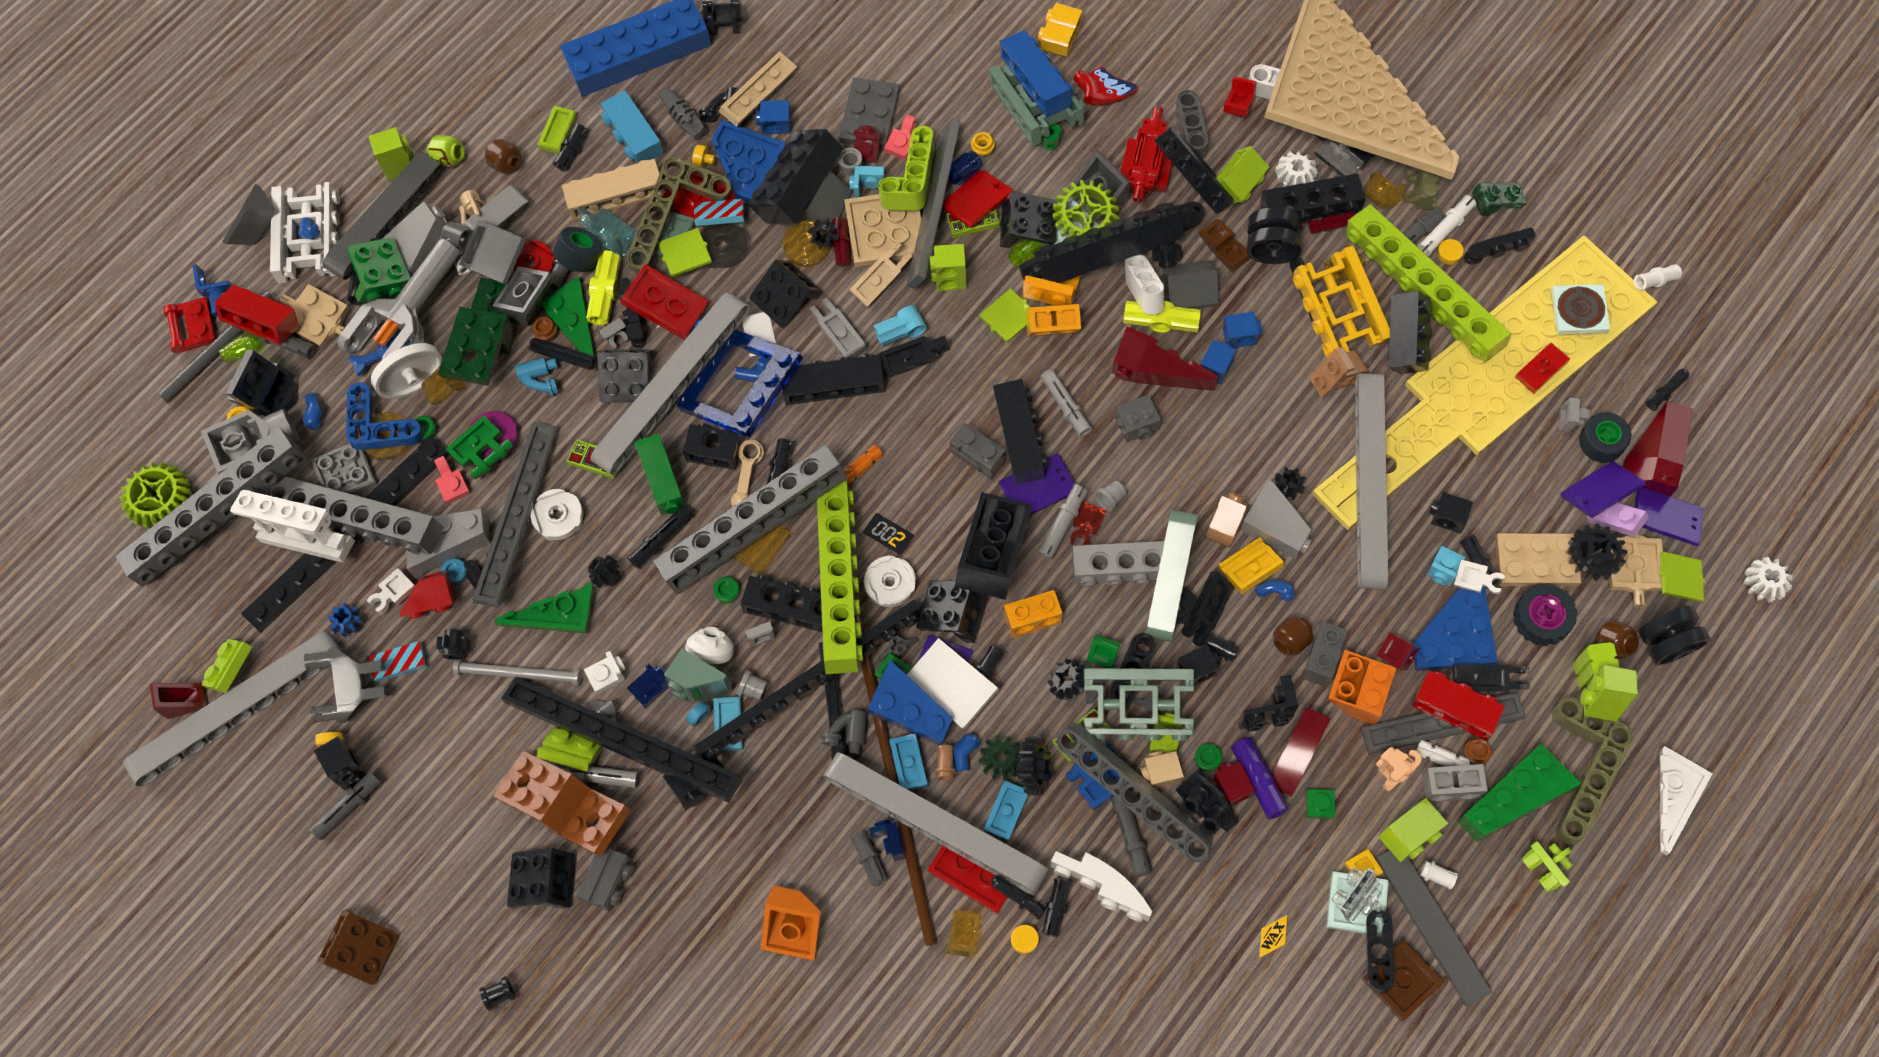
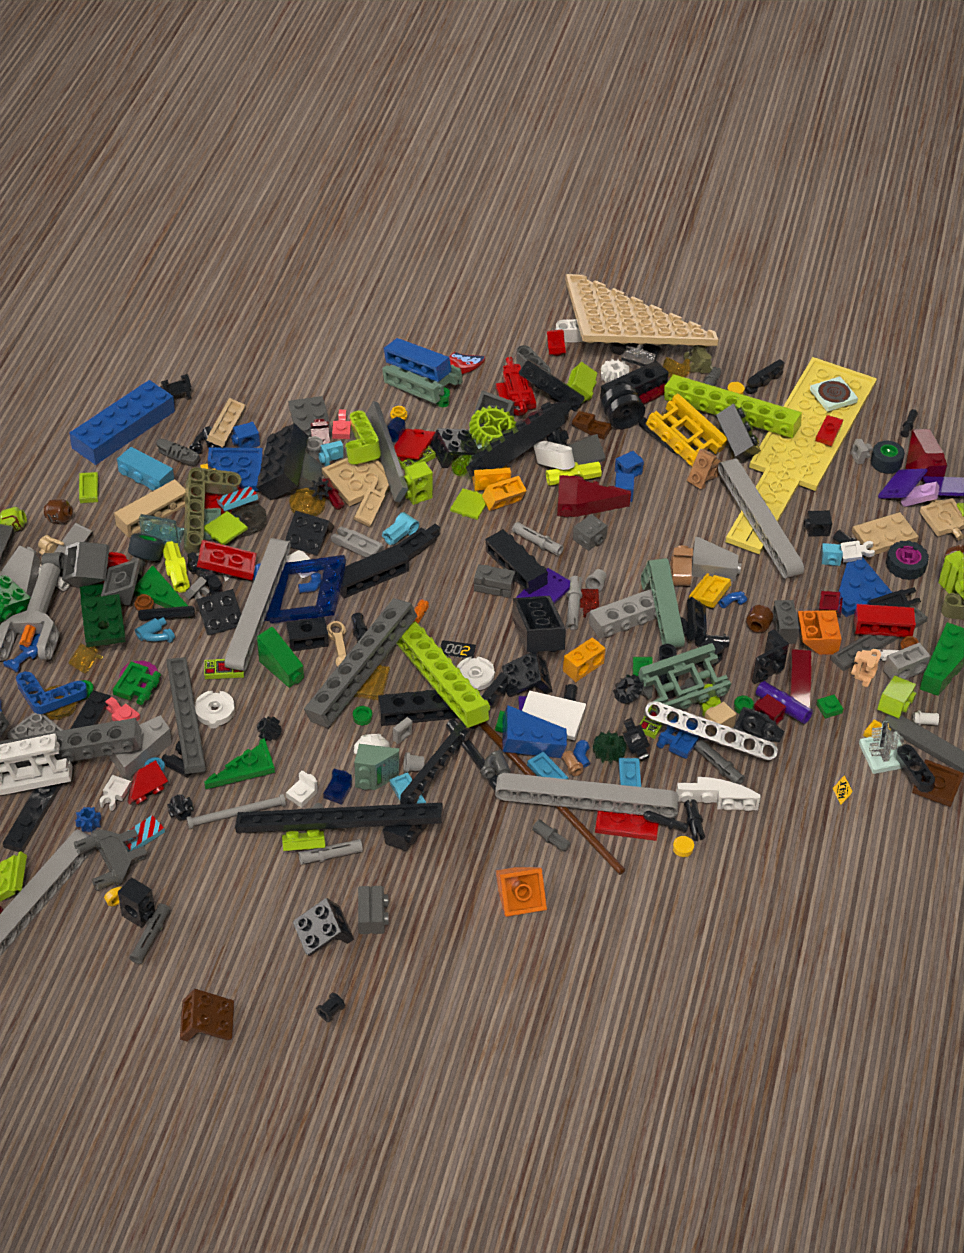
camera: 30 degrees left, 20 degrees down
(405, 370) = (58, 649): white piece -> none
(561, 803) = (316, 871): dark orange bracket -> none
(570, 147) = (104, 494): black pin -> none
(660, 536) = (295, 703): black pin -> none
(698, 713) = (384, 790): dark azure tile -> none
(892, 843) = (562, 816): clear blue bracket -> none
(898, 647) = (500, 705): dark grey piece -> none
(964, 933) = (641, 853): clear yellow bracket -> none
(1061, 29) = (416, 334): yellow brick -> none
(1290, 476) = (710, 535): black gear -> none
(1453, 218) = (727, 371): white pin -> none
(1497, 196) = (746, 352): clear green plate -> none
(1592, 540) = (919, 514): black gear -> none
(1657, 277) = (869, 365): white pin -> none

